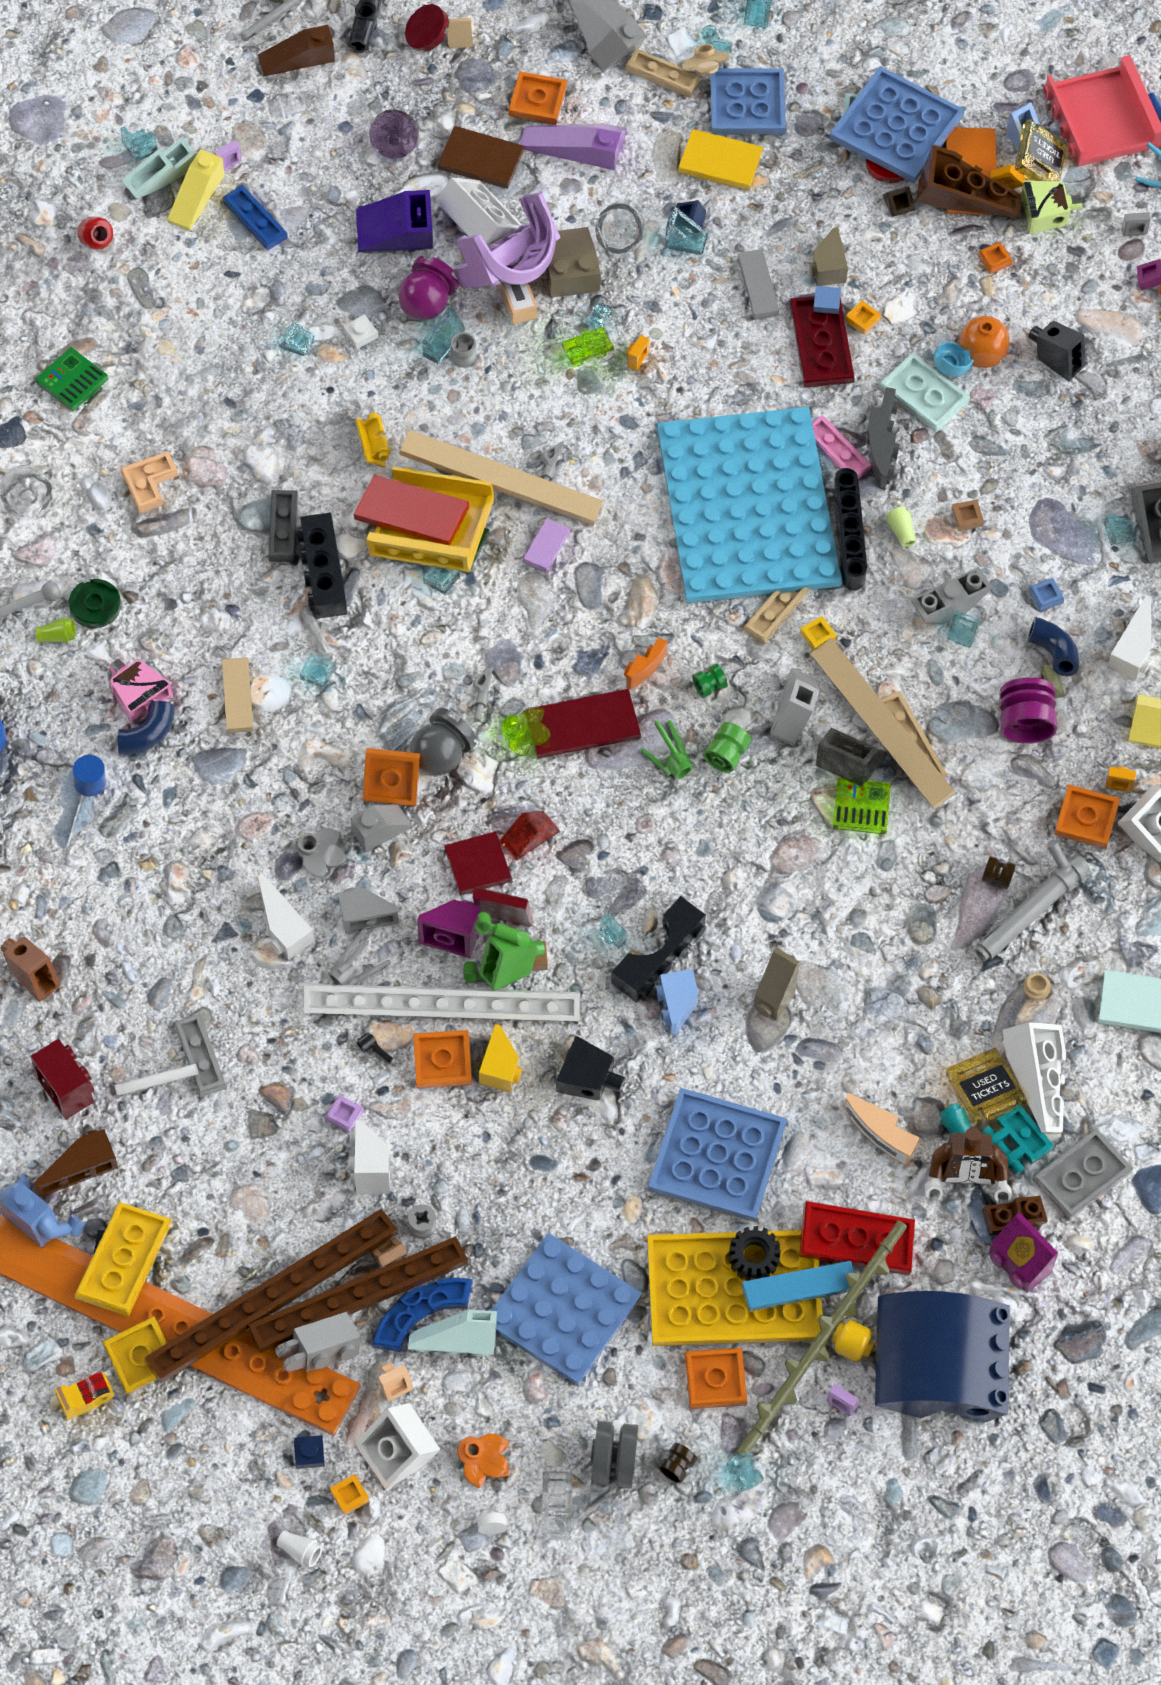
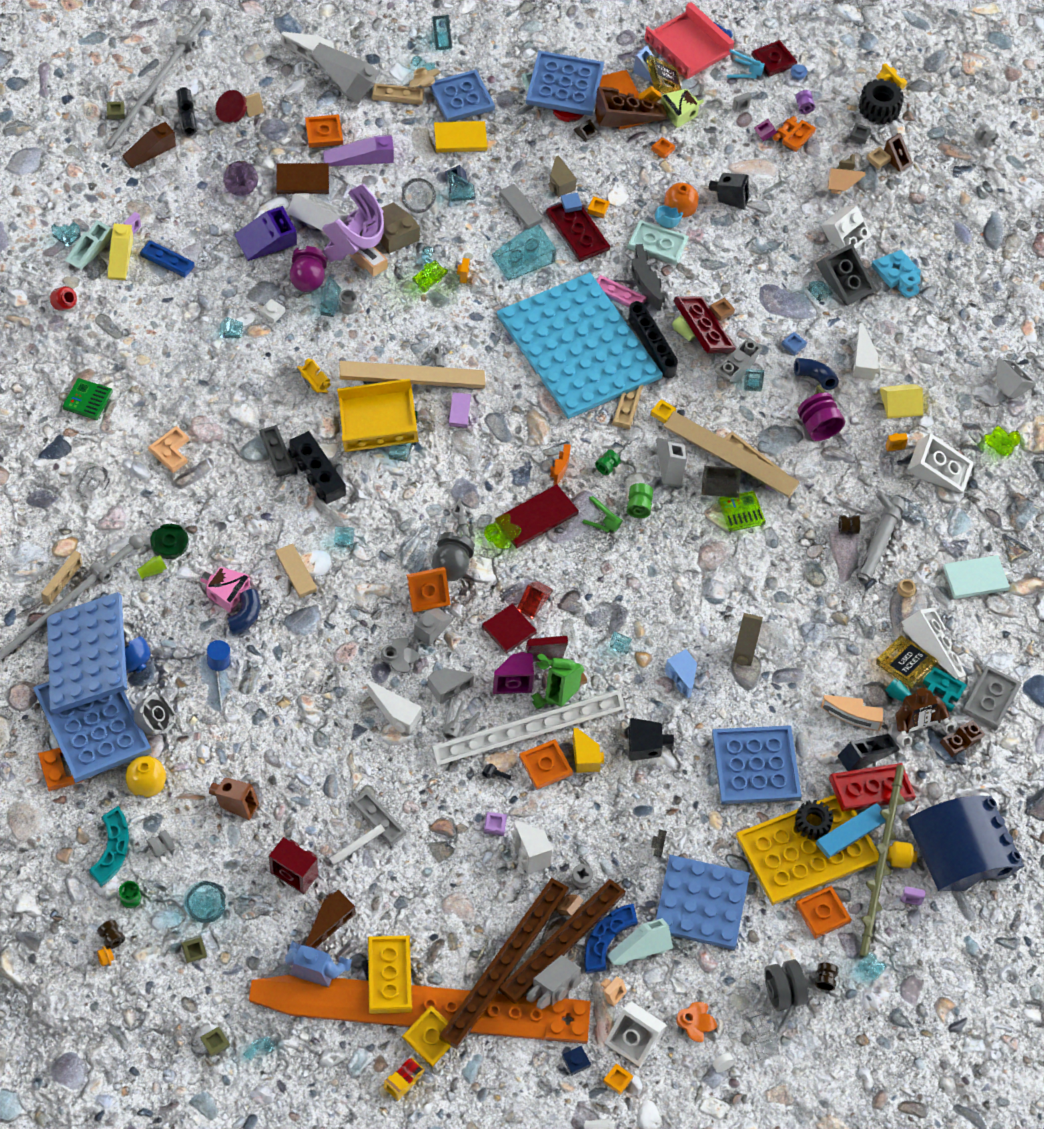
camera: 25 degrees left, 5 degrees down
(411, 510) = (362, 413): tile -> none
(541, 1212) = (658, 843): none -> clear smoke plate
(637, 973) = (649, 663): black arch -> none
(731, 353) = (525, 253): none -> clear light blue slope
(874, 1188) = (867, 751): none -> black slope
(930, 529) = (704, 324): none -> dark red tile
(1023, 1253) = (983, 759): magenta slope -> none
(1087, 816) = (886, 472): orange plate -> none

